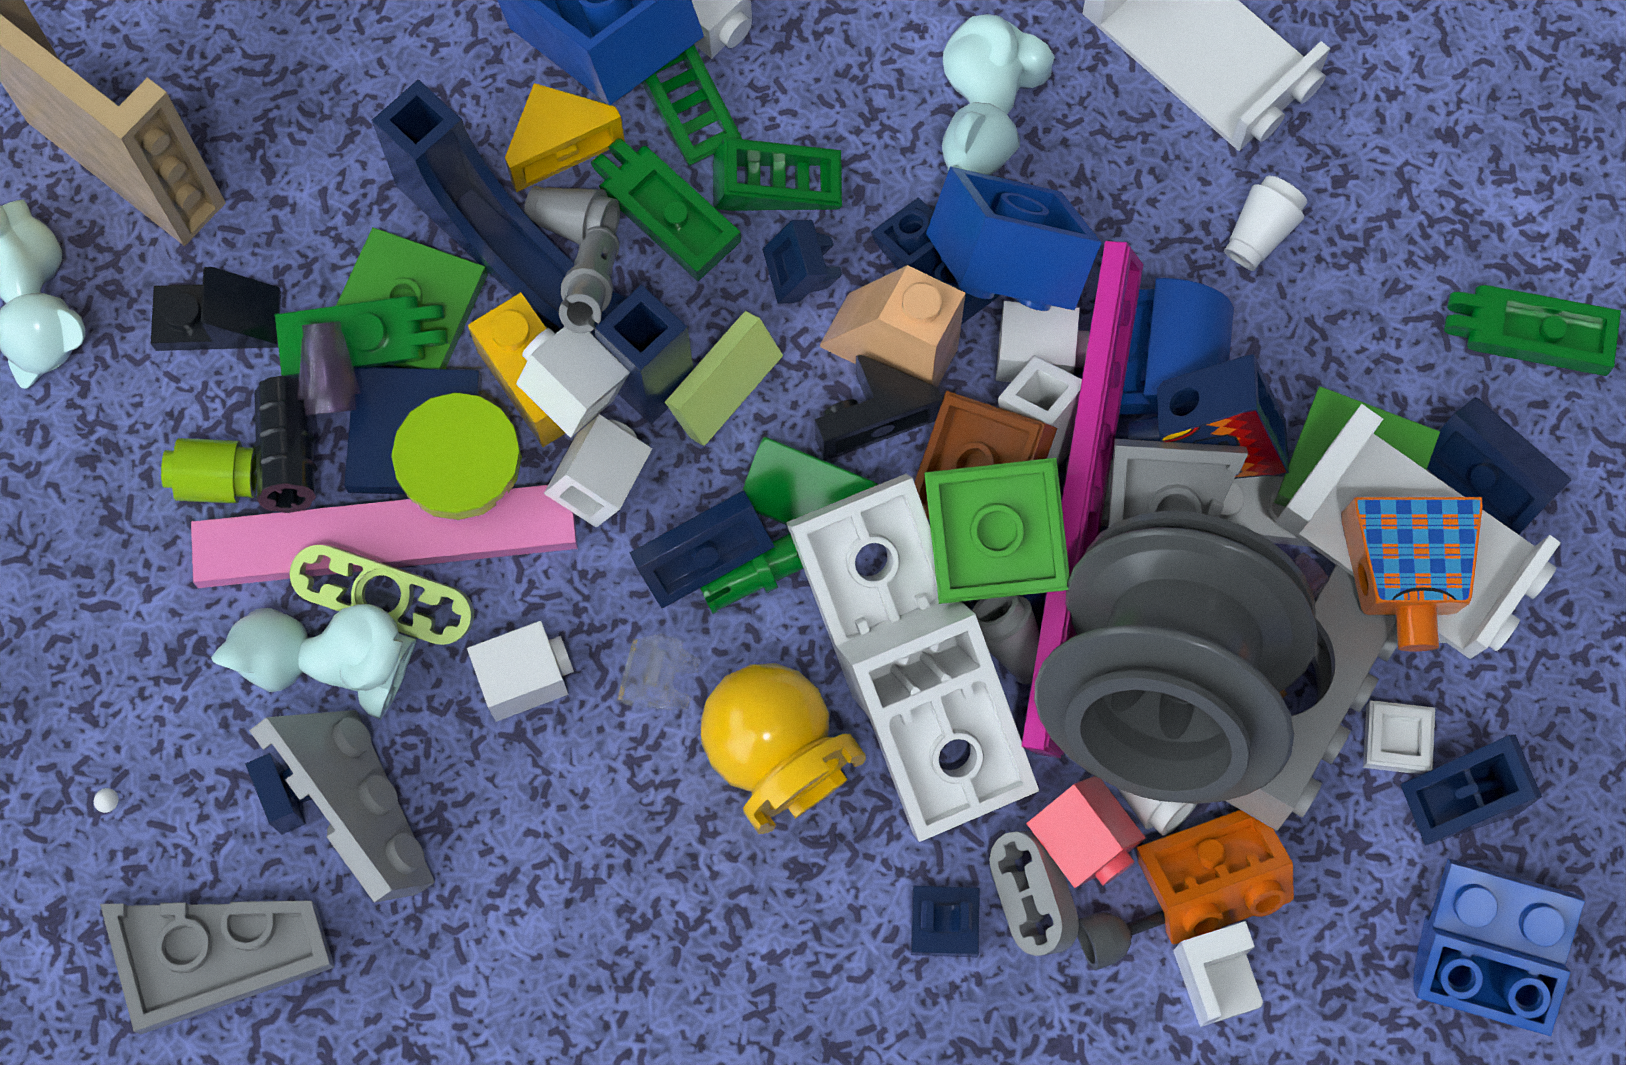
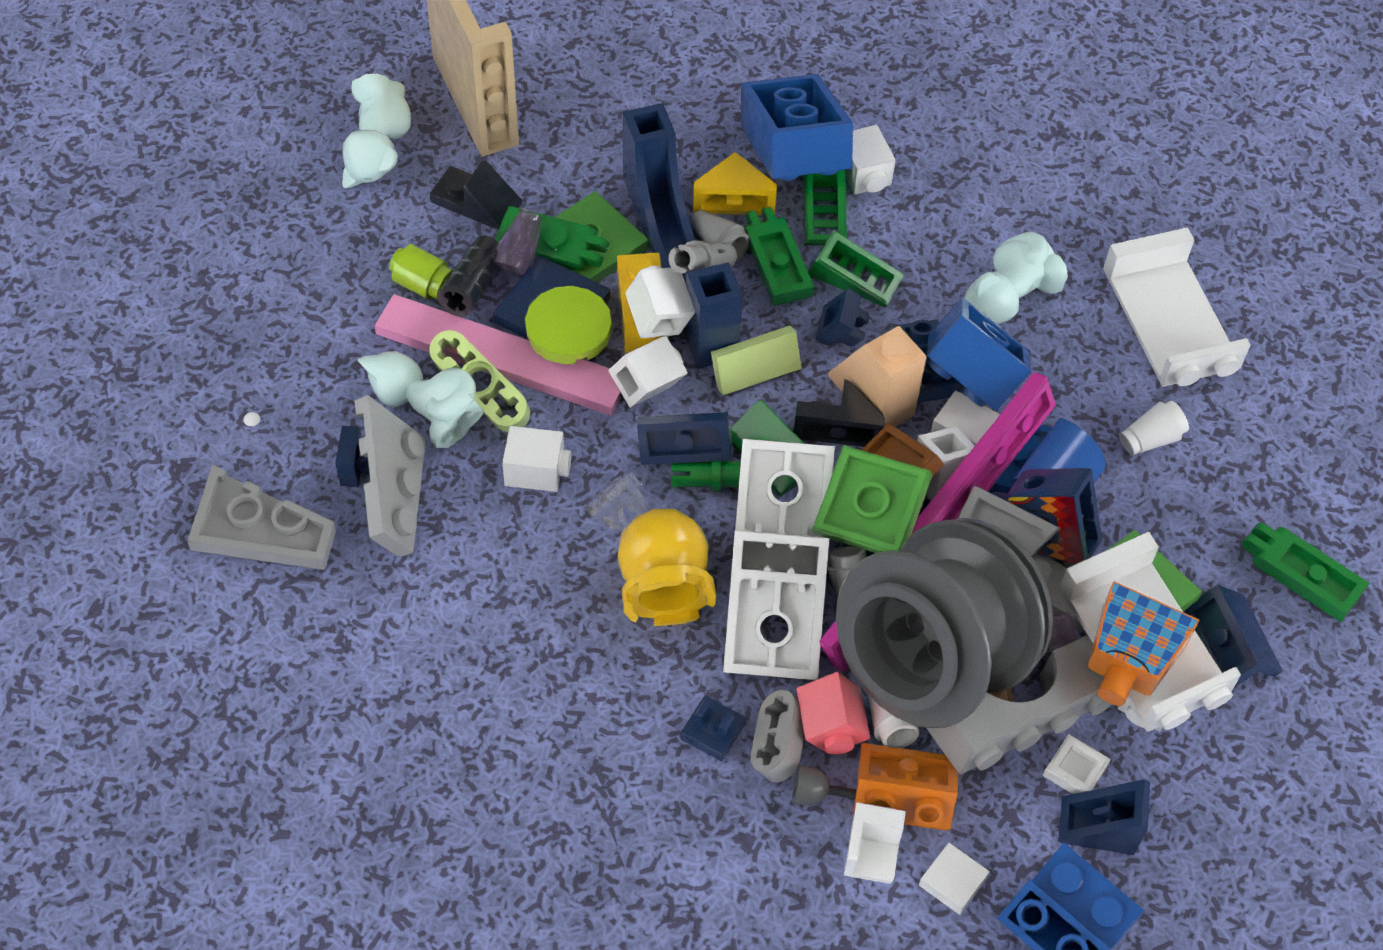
camera: 25 degrees right, 15 degrees down
(1332, 963) = (954, 878): none -> white tile

